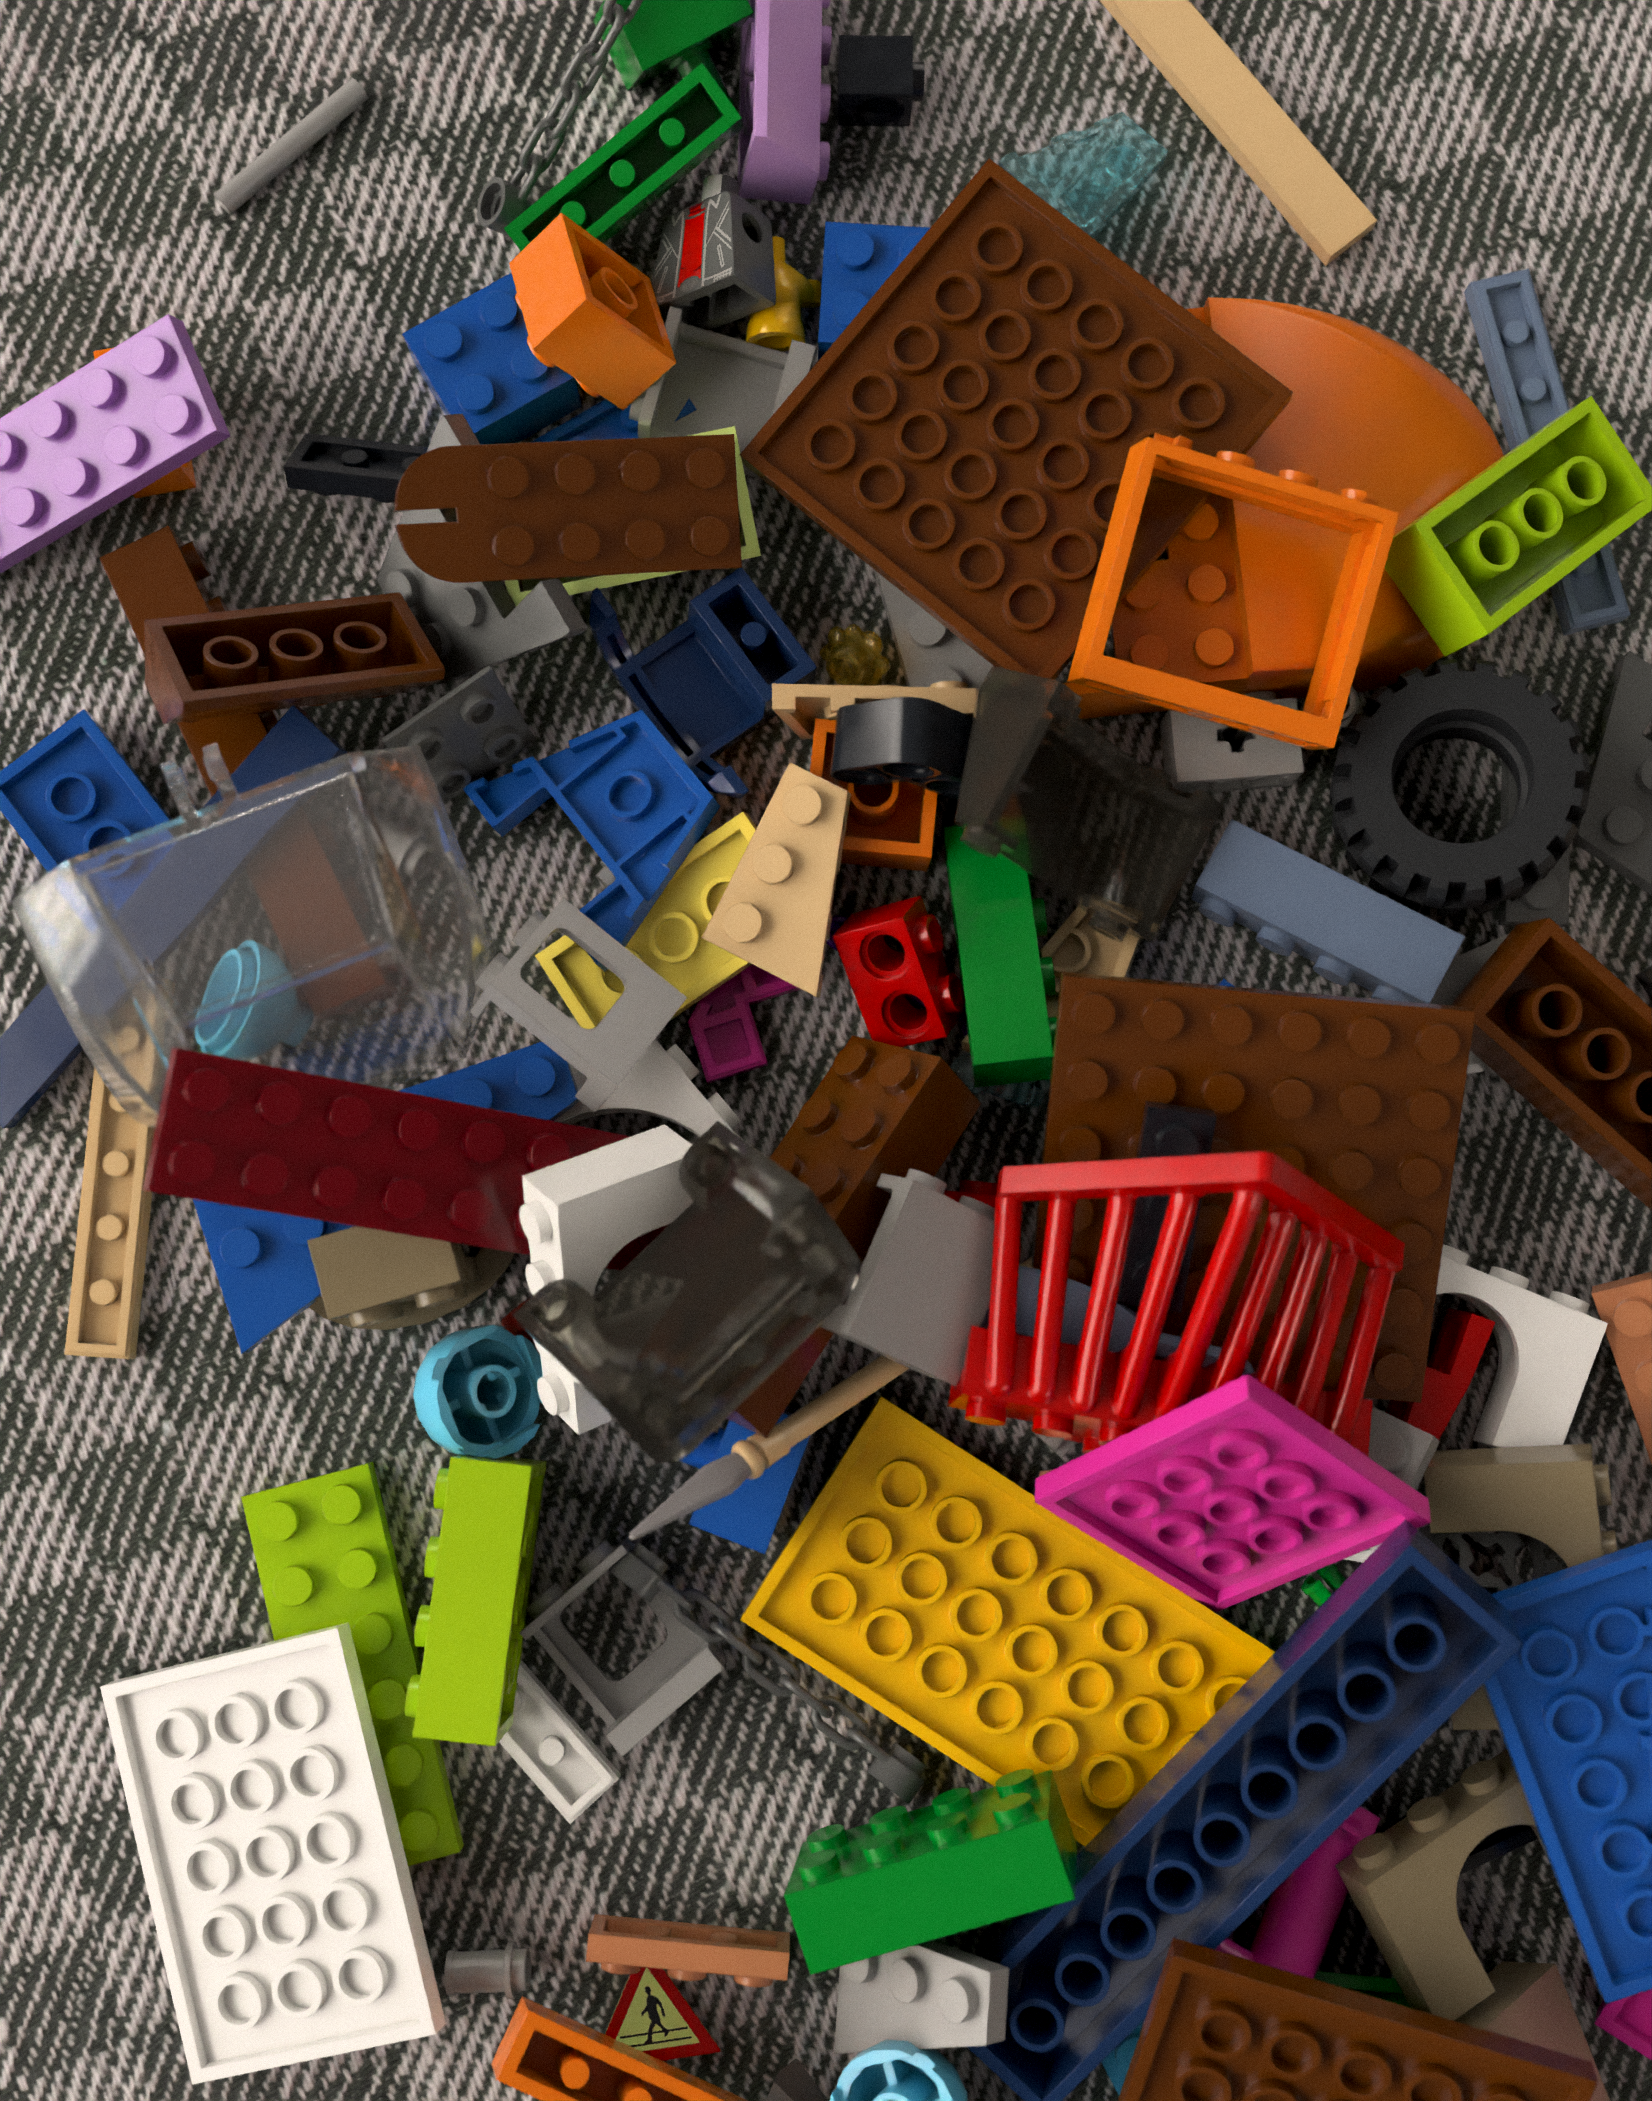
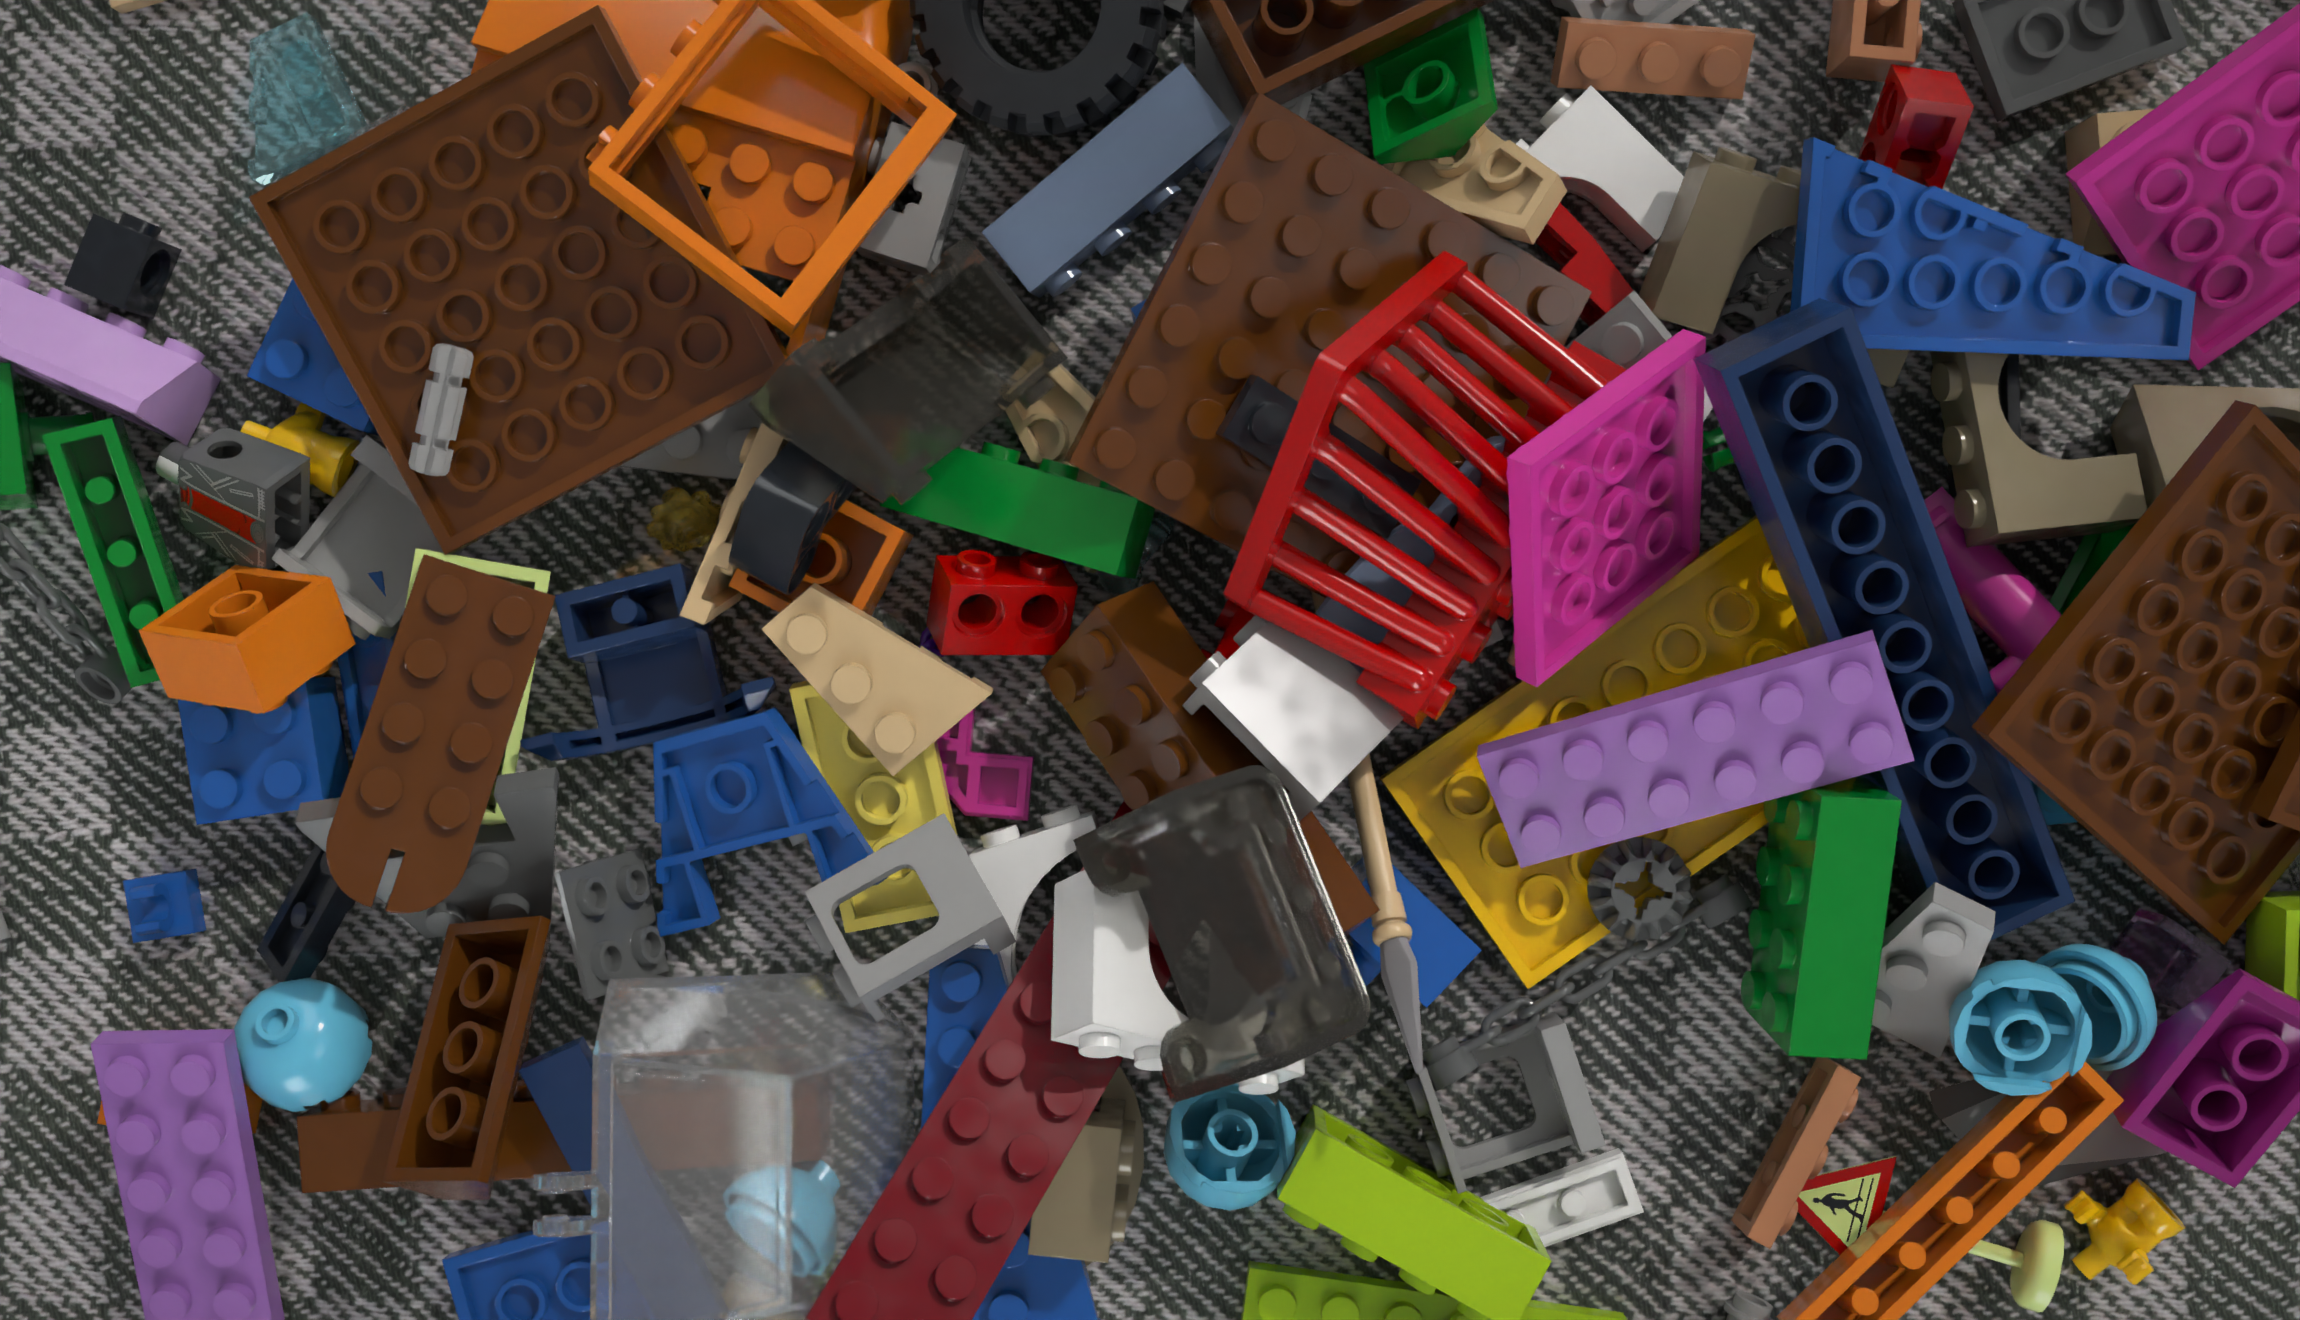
camera: 60 degrees left, 5 degrees up
(237, 505) = (302, 1043): none -> medium azure cylinder
(313, 337) = (164, 905): none -> blue tile
(853, 1670) = (1624, 863): none -> dark grey gear
(870, 398) = (440, 410): none -> light grey axle
(1038, 1683) = (1697, 750): none -> medium lavender plate
(1485, 1250) = (1491, 185): none -> tan wing
(1536, 1177) = (1431, 92): none -> green slope

